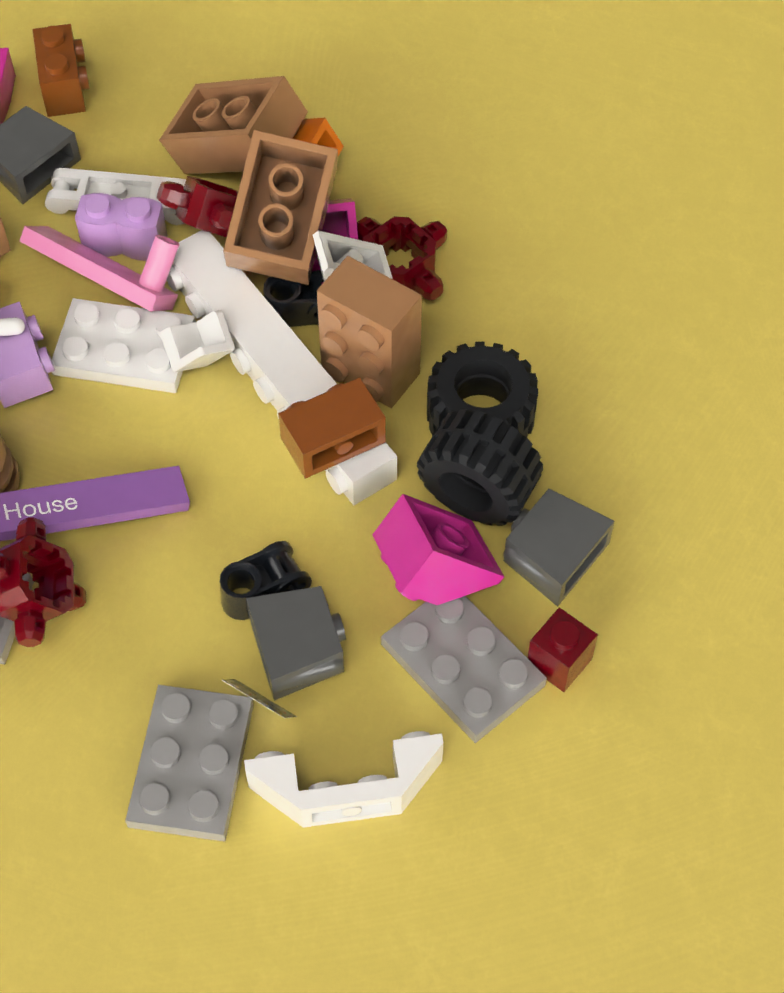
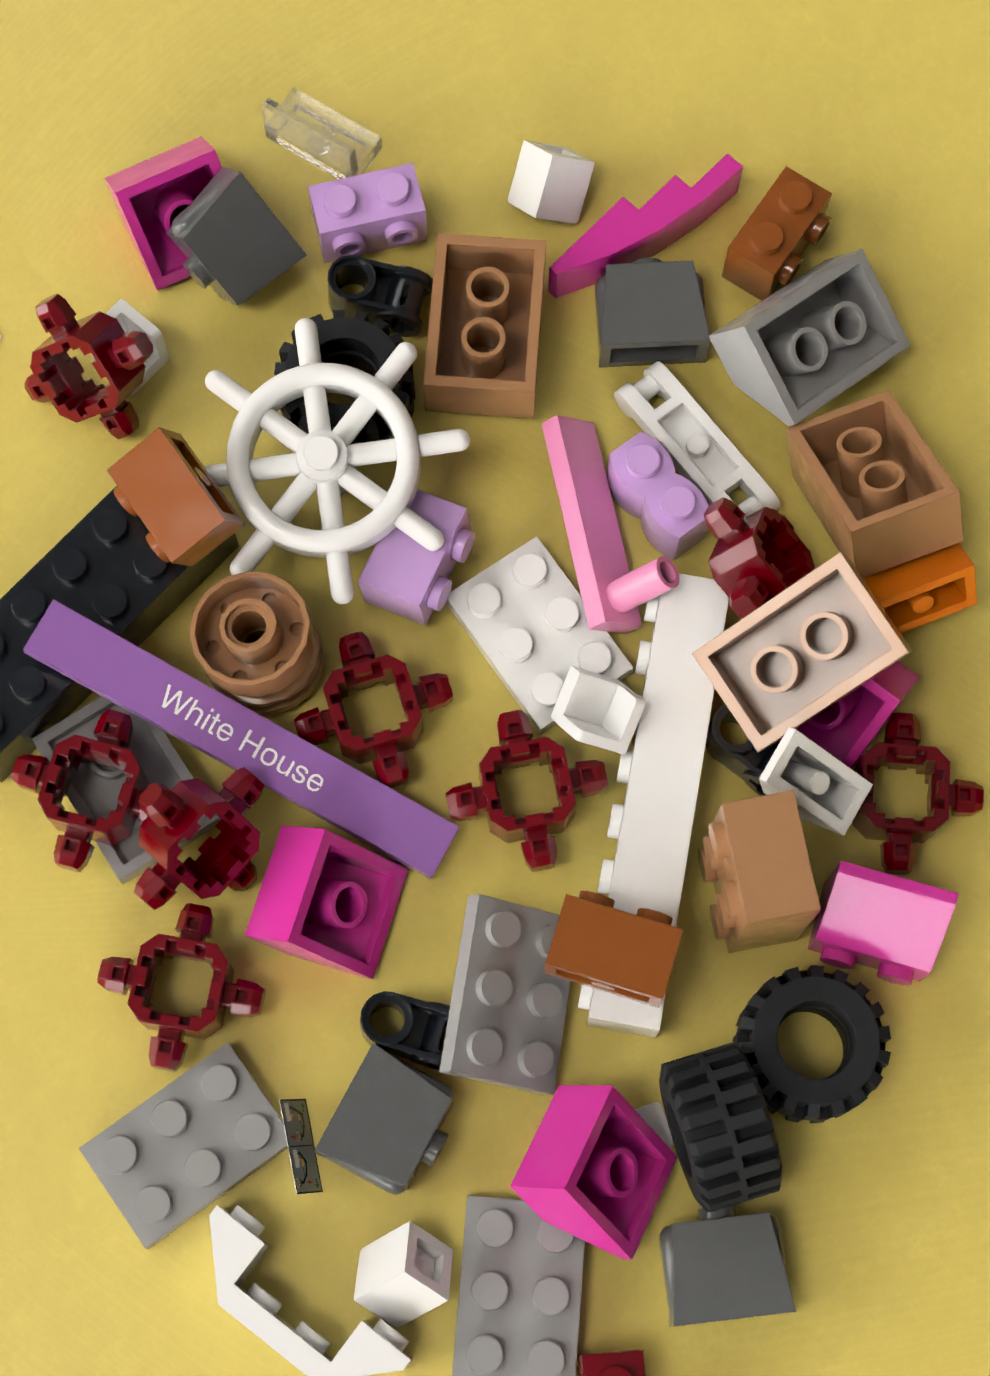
camera: 45 degrees right, 15 degrees up
(63, 421) = (361, 672): none -> dark red piece
(80, 653) = (120, 975): none -> dark red piece
(128, 94) = (812, 338): none -> light grey slope
(139, 562) = (326, 900): none -> dark pink slope
(204, 442) = (518, 751): none -> dark red piece
(297, 516) = (503, 1006): none -> light grey plate
(388, 705) = (403, 1274): none -> white panel
(458, 308) = (881, 923): none -> slope

